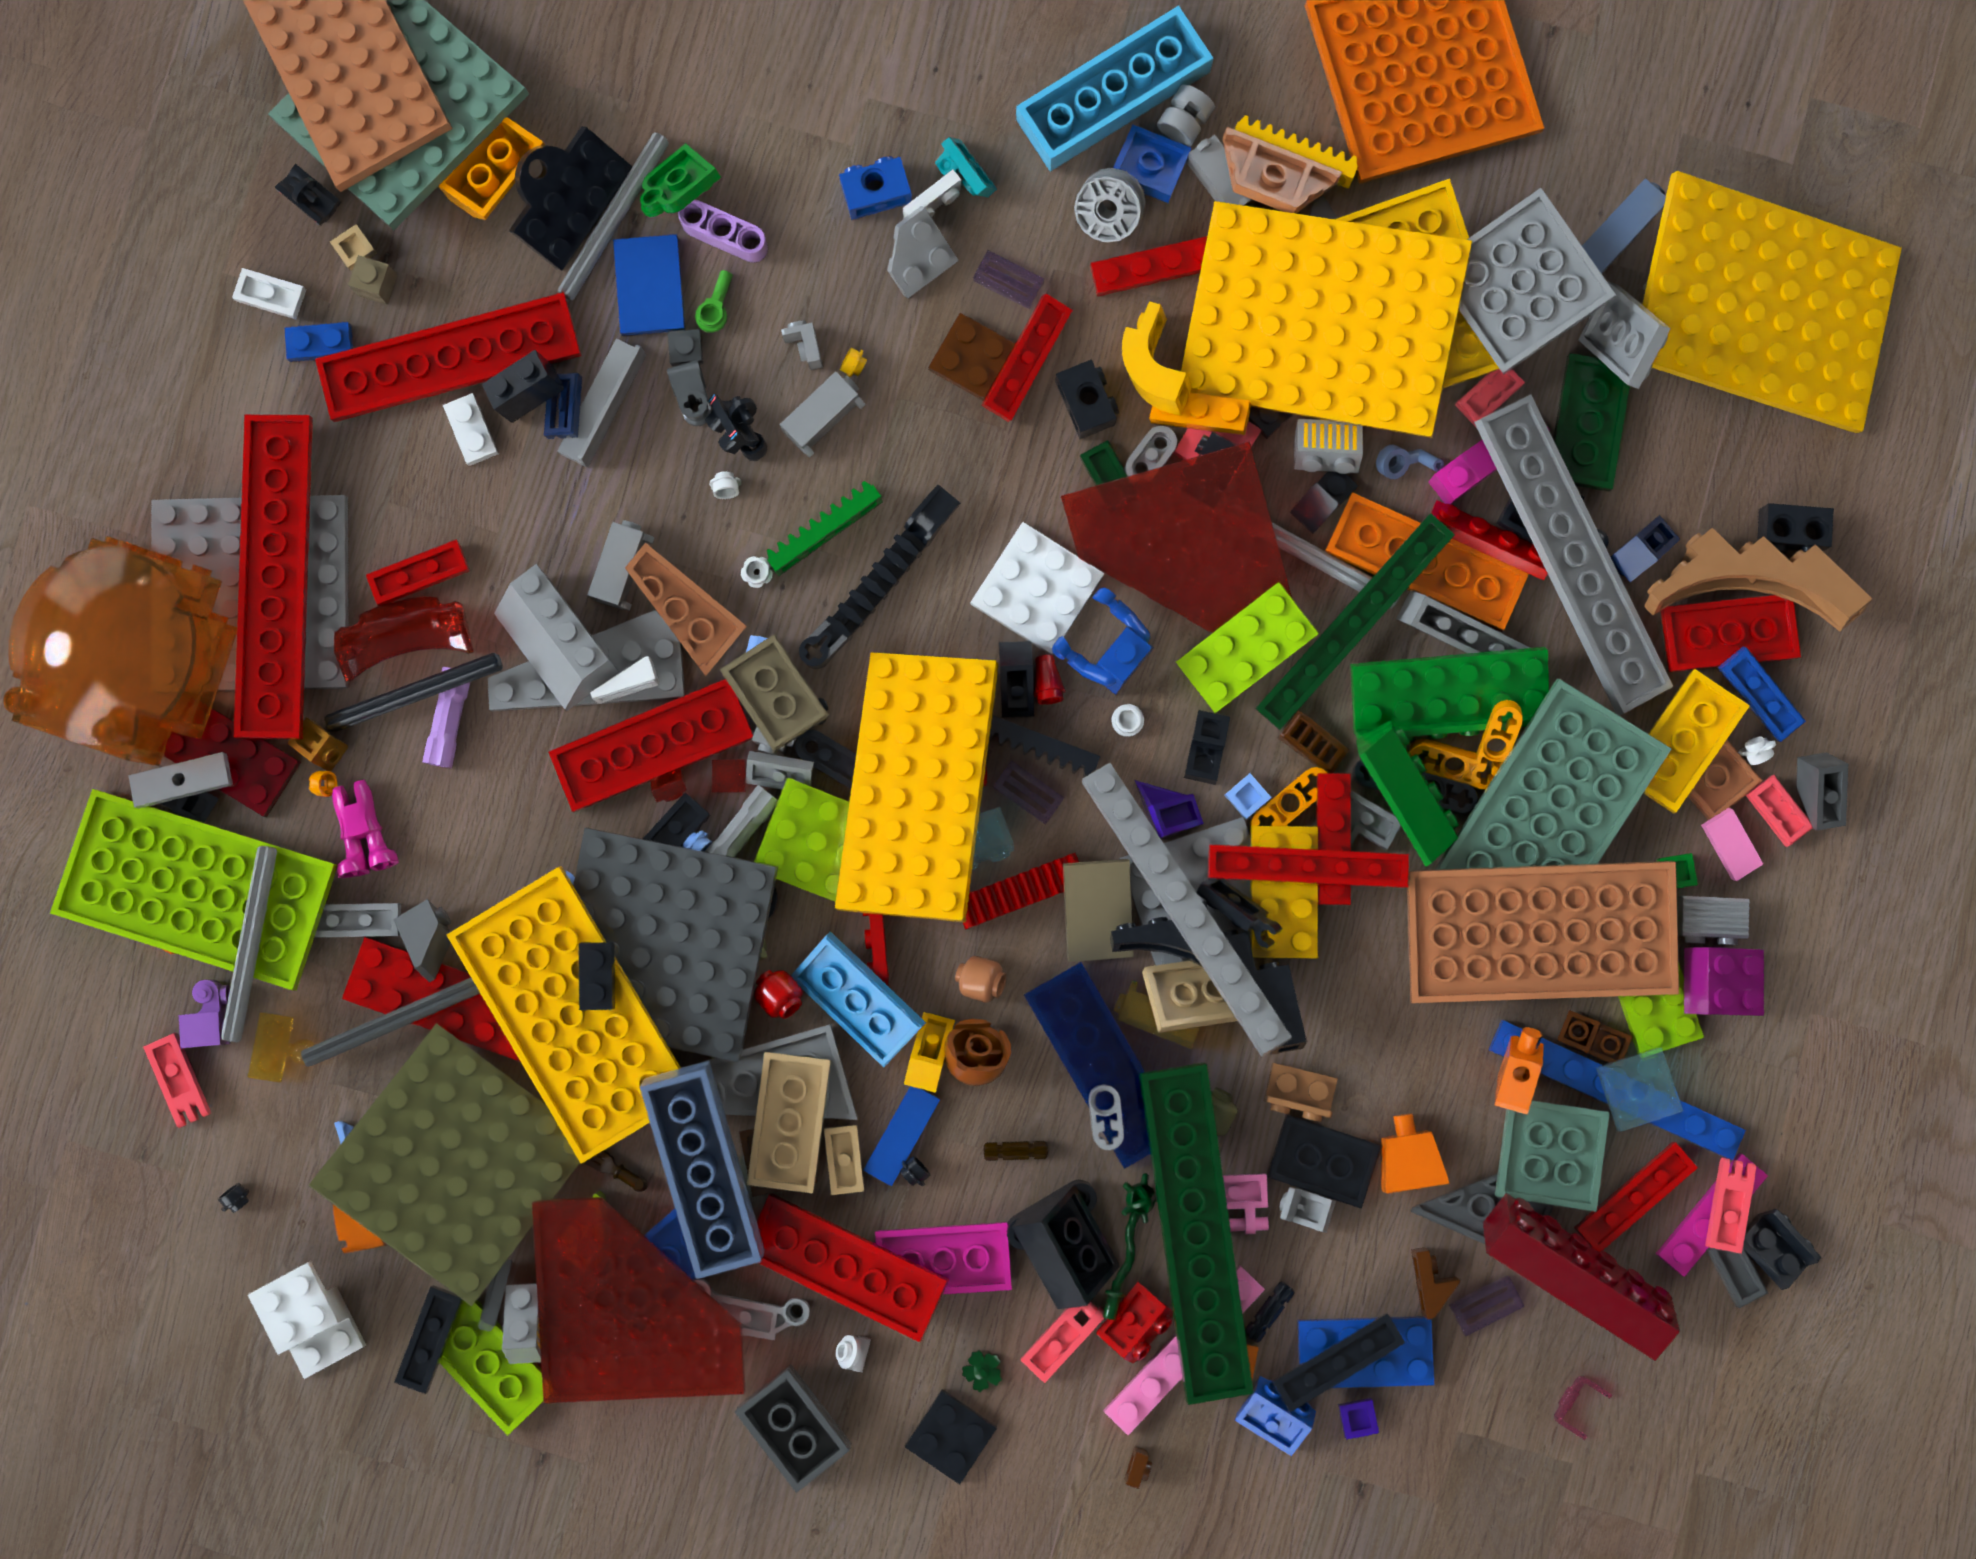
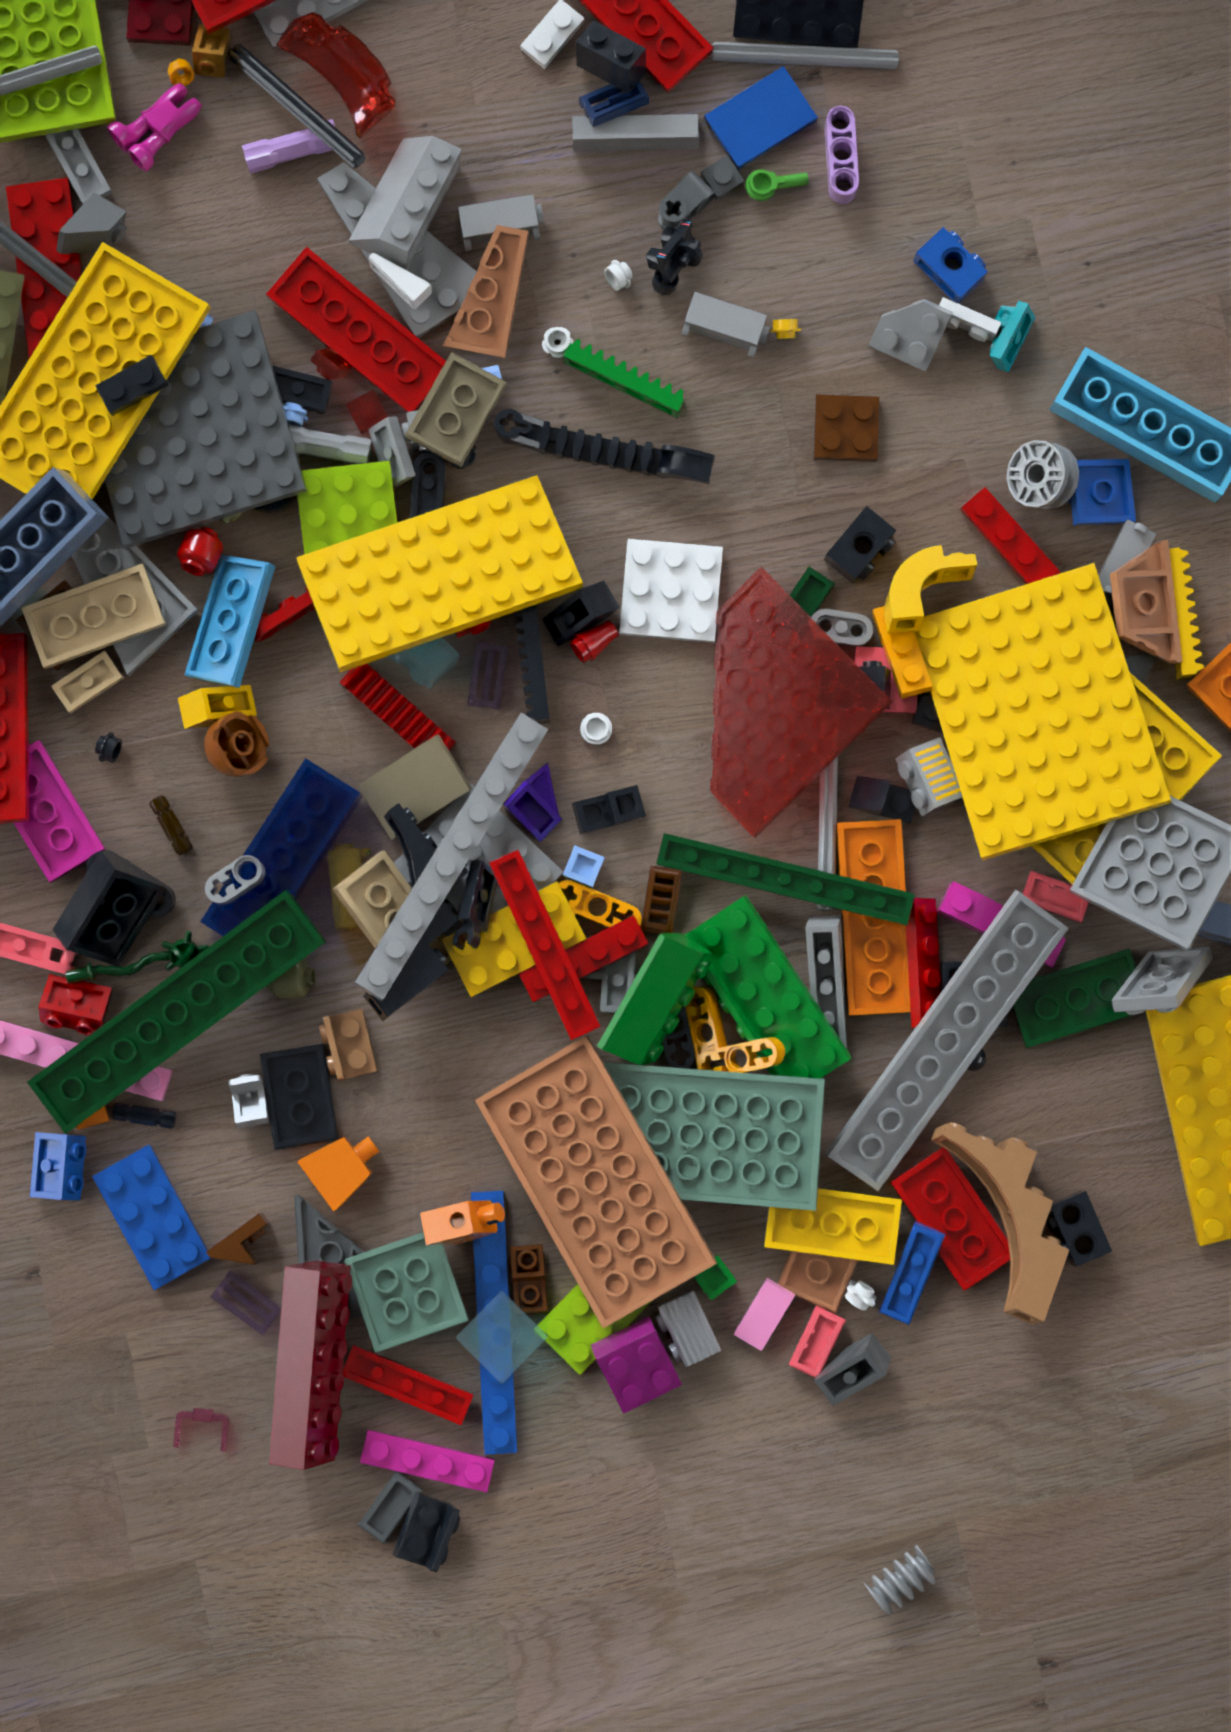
camera: 60 degrees right, 0 degrees up
(417, 572) = (403, 55): red plate -> none
(677, 182) = (861, 92): green plate -> none
(809, 347) = (778, 283): light grey bracket -> none
(901, 1135) = (134, 720): blue tile -> none
(981, 979) = (302, 717): nougat head -> none
(1002, 290) = (932, 451): clear purple tile -> none
(1027, 357) = (870, 475): red plate -> none
(1123, 655) = (649, 693): blue torso -> none
(1188, 110) = (1150, 499): light grey wheel -> none
(1247, 647) = (713, 797): lime plate -> none
(1247, 1193) = (235, 1040): bright pink plate -> none
(1338, 1362) = (128, 1192): black gear -> none
(1358, 1418) = (91, 1238): dark purple plate -> none
(1395, 461) = (953, 849): sand blue plate -> none
(1644, 549) = (989, 1103): dark blue slope -> none
(1730, 1206) = (439, 1469): coral hinge -> none

